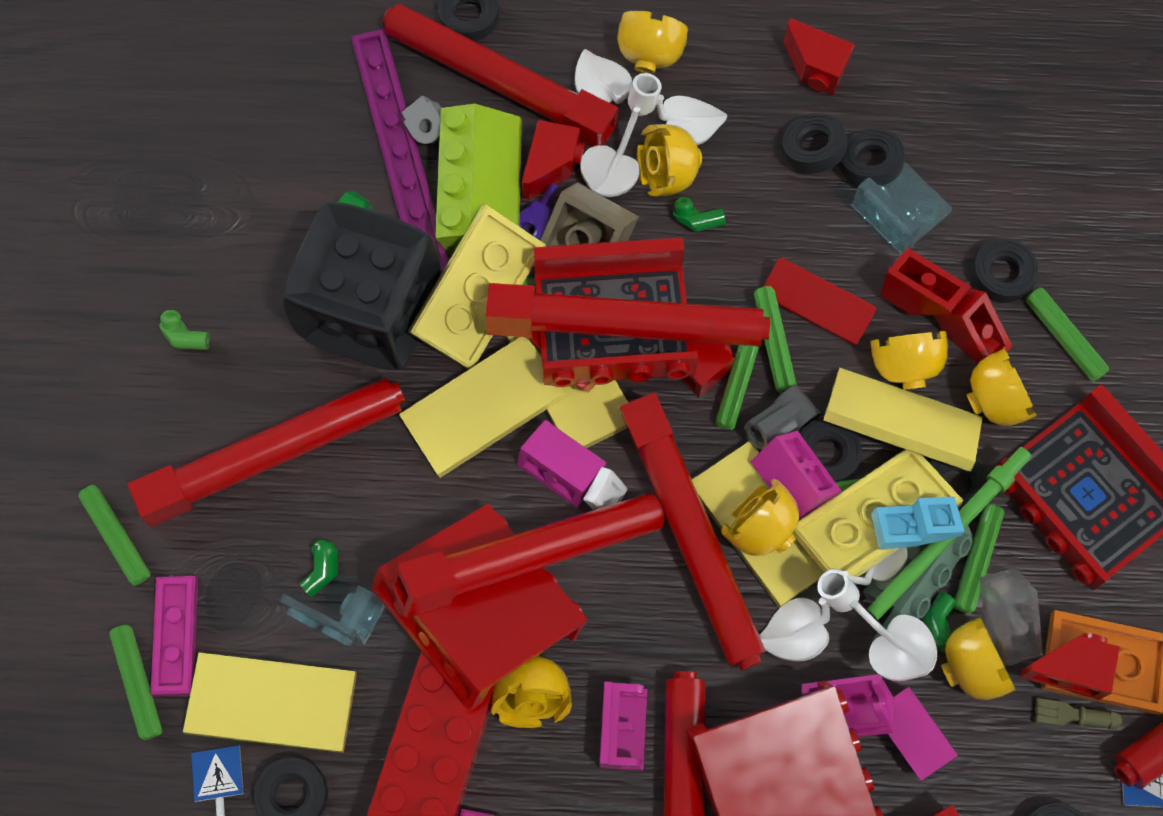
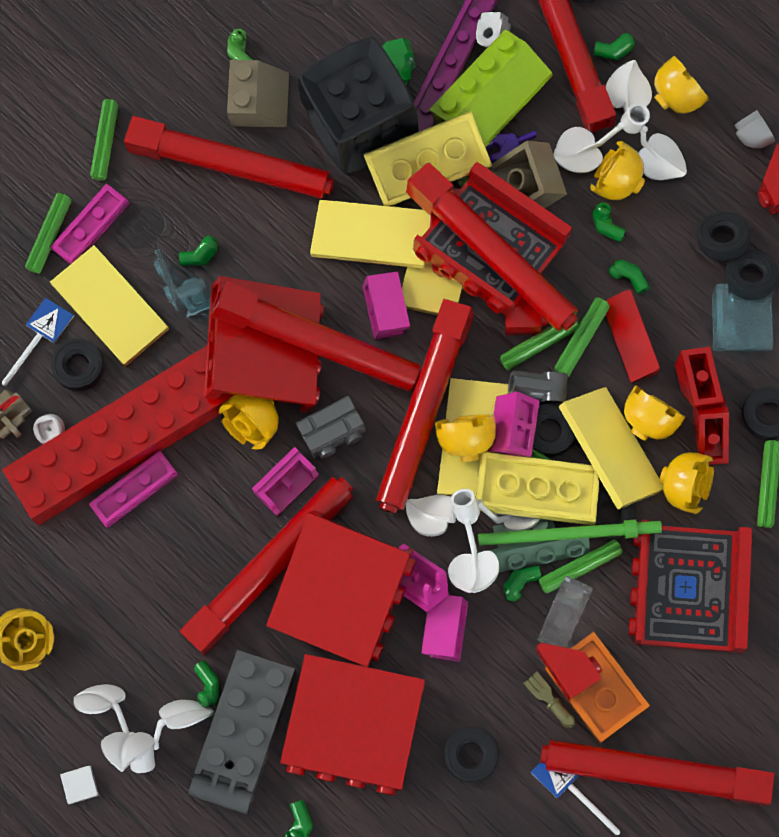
camera: 50 degrees right, 5 degrees up
(242, 361) = (257, 94): none -> dark tan slope
(551, 157) = (548, 114): red slope -> none
(557, 55) = (617, 49): none -> green arm
(605, 490) = (396, 342): white tile -> none
(618, 631) = (331, 428): none -> dark grey brick
(752, 29) = (754, 131): none -> light grey piece
(762, 242) = (632, 272): none -> green arm
(915, 525) = (550, 510): medium azure slope -> none
(975, 663) = (517, 619): yellow cylinder -> none

